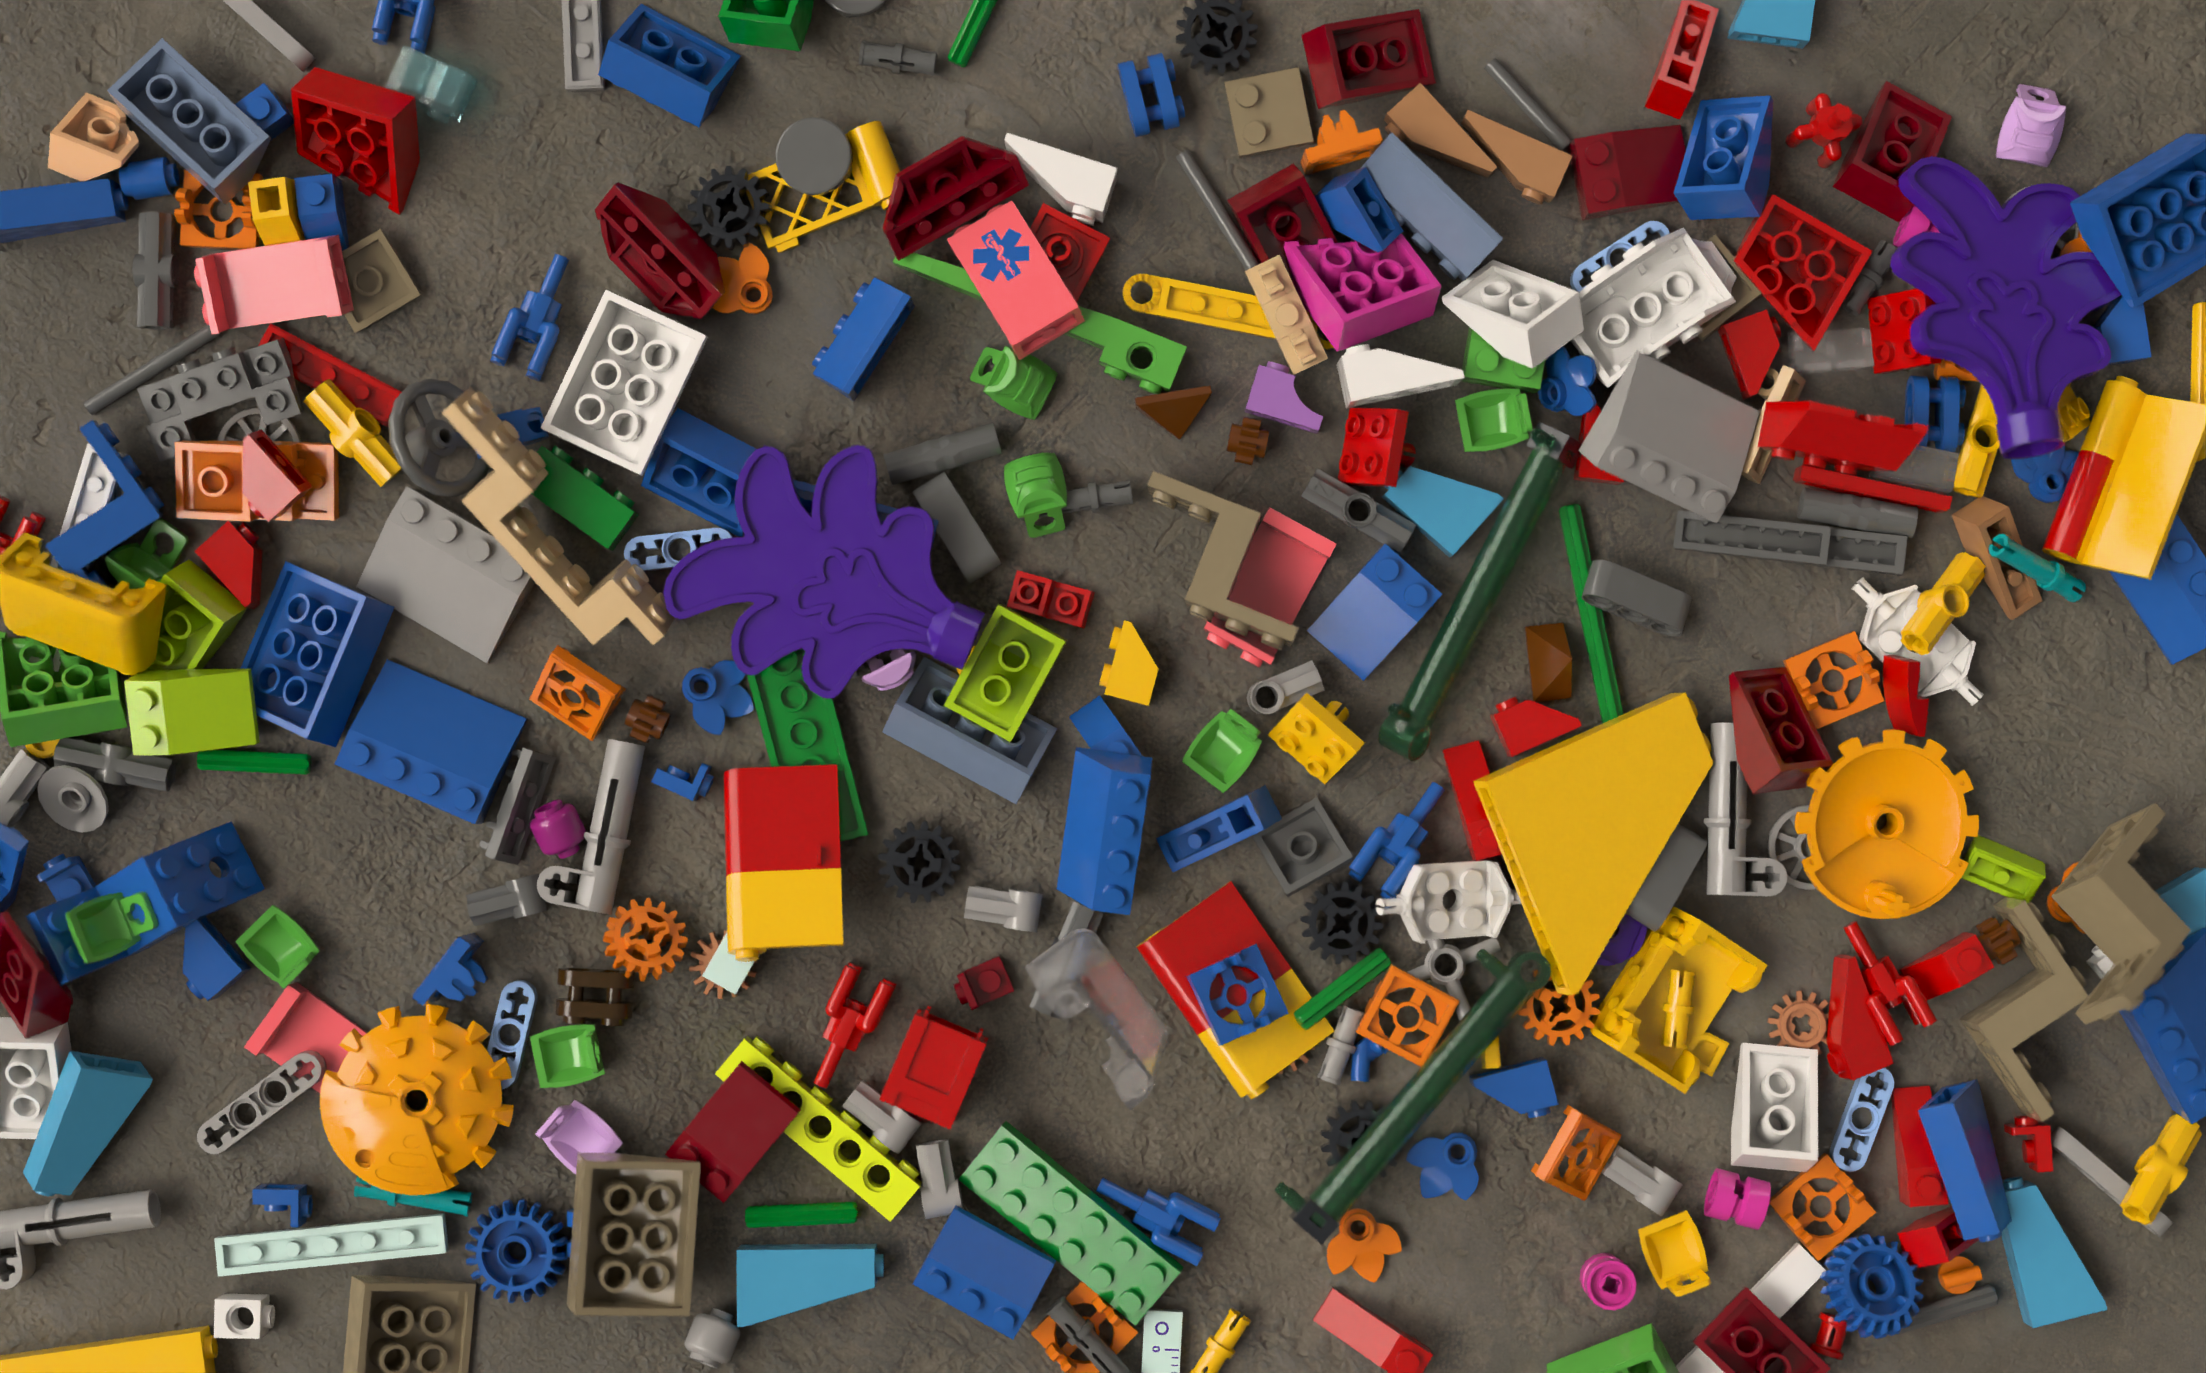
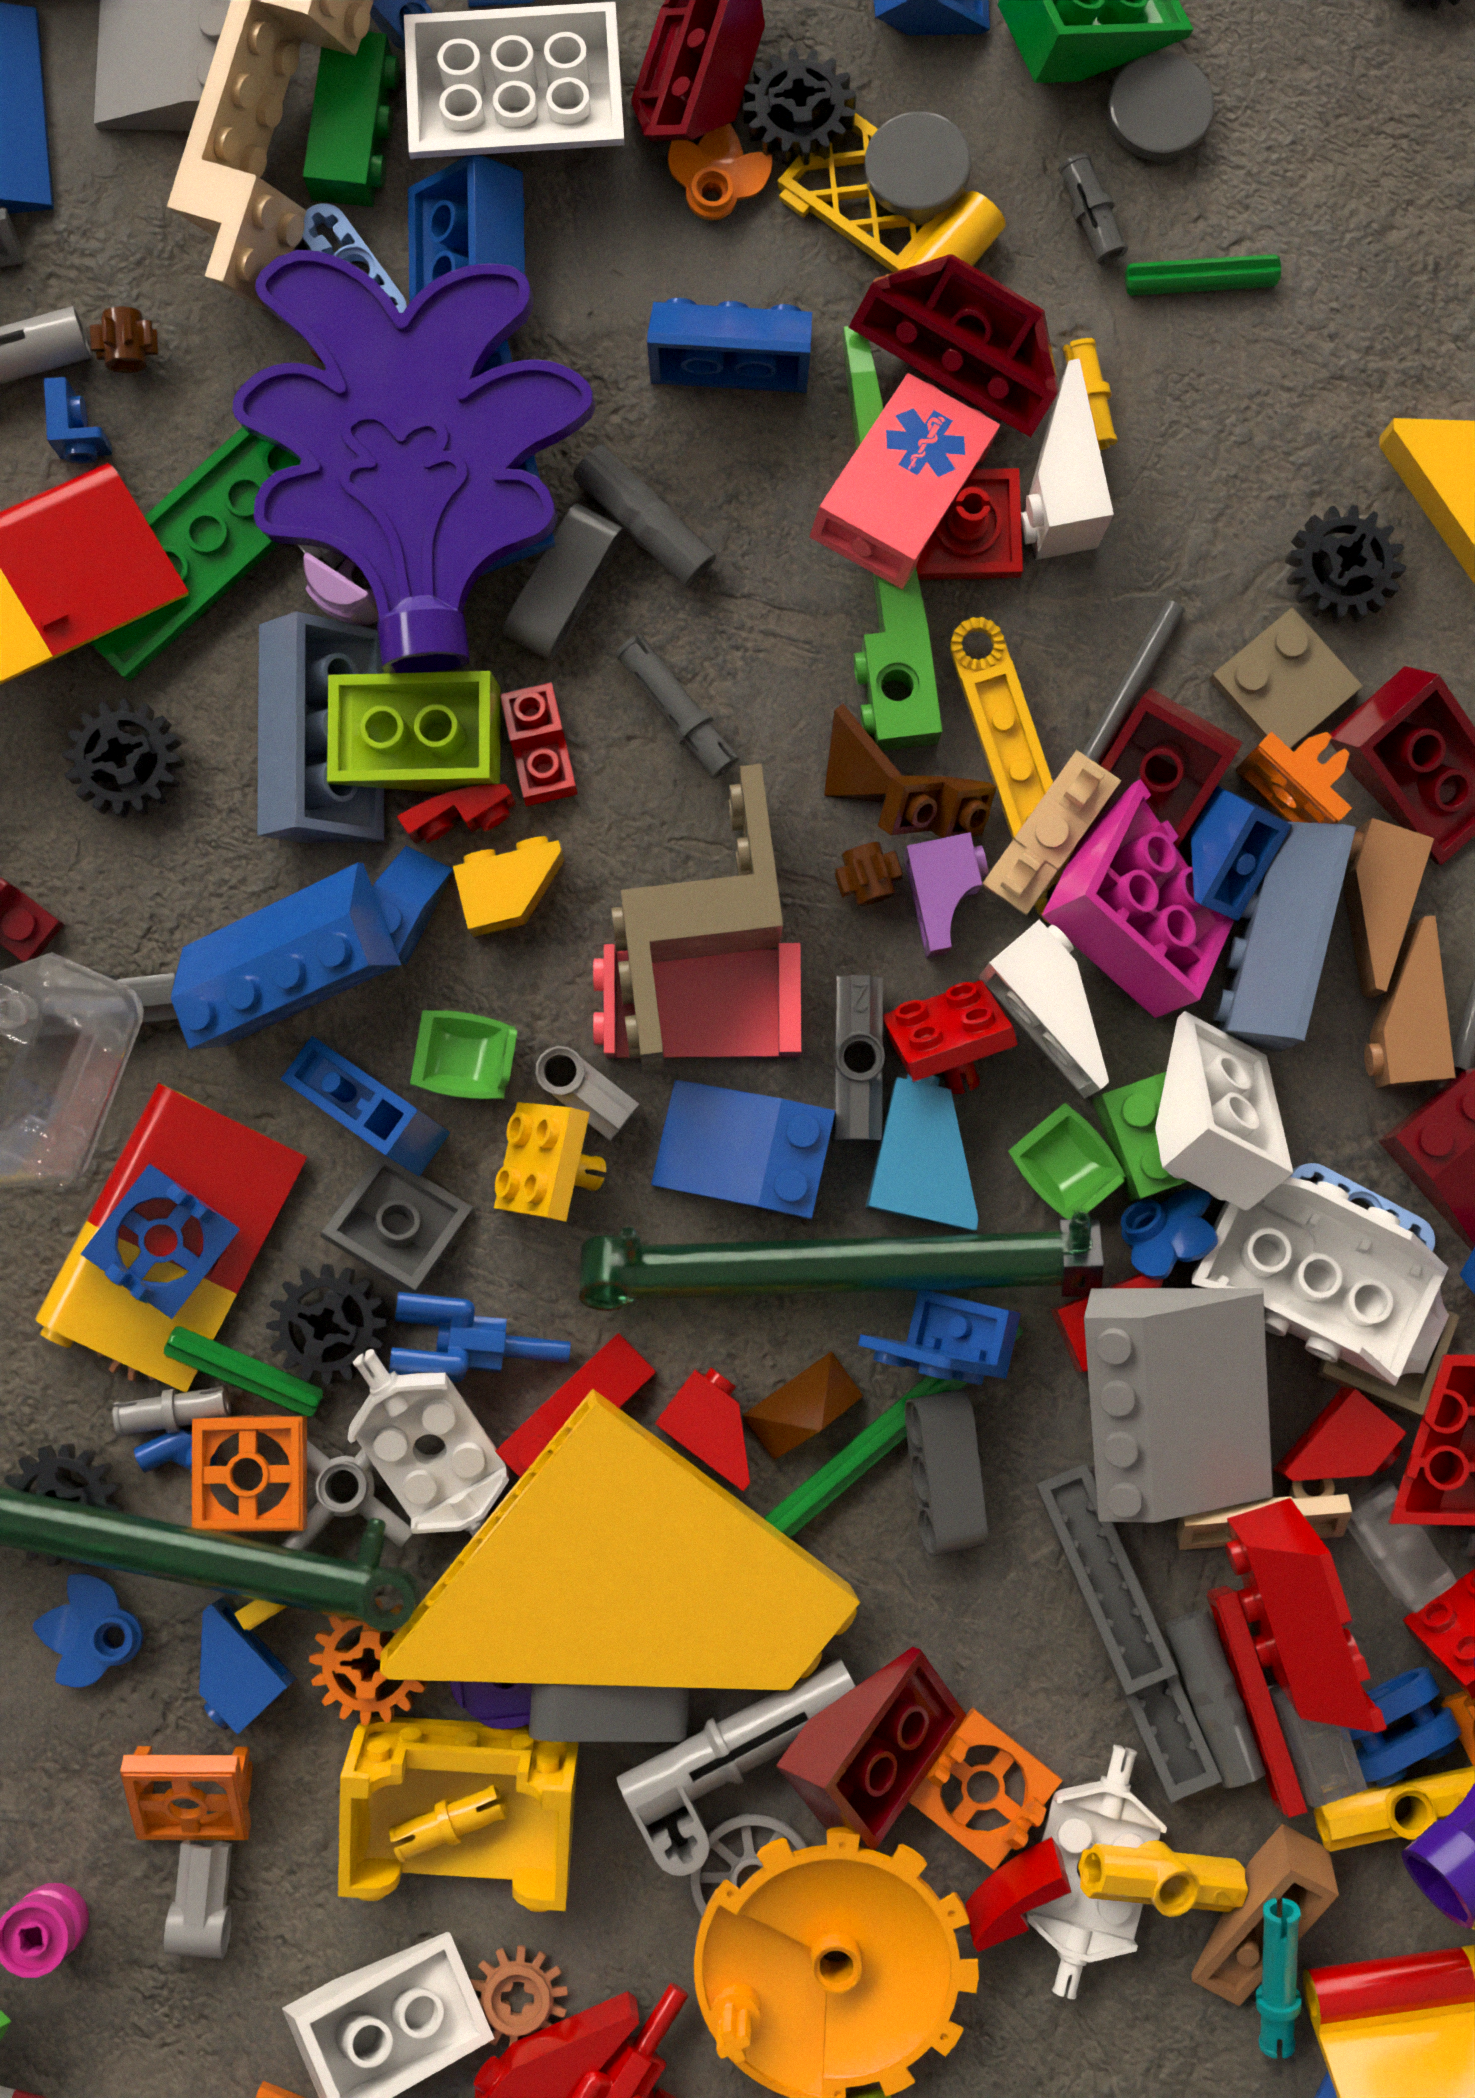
camera: 60 degrees right, 5 degrees down
(564, 708) = (87, 259): orange piece -> none
(721, 699) = (199, 418): blue plate -> none
(1001, 124) = (1097, 389): none -> yellow pin
(1014, 908) = (125, 906): light grey piece -> none
(1015, 383) = (780, 558): bright green piece -> none
(1037, 487) = (667, 649): bright green piece -> none
(1070, 661) = (477, 805): none -> red slope
(1168, 107) = (1222, 555): blue brick -> none
(1230, 371) = (936, 805): none -> reddish brown slope
(1561, 551) = (952, 1339): none -> blue bracket
(1675, 1253) = (124, 2001): yellow piece -> none
(1709, 1051) = (416, 1893): yellow tile -> none
(1731, 1197) = (237, 2062): dark pink wheel -> none
(2055, 466) = (1403, 1904): blue plate -> none

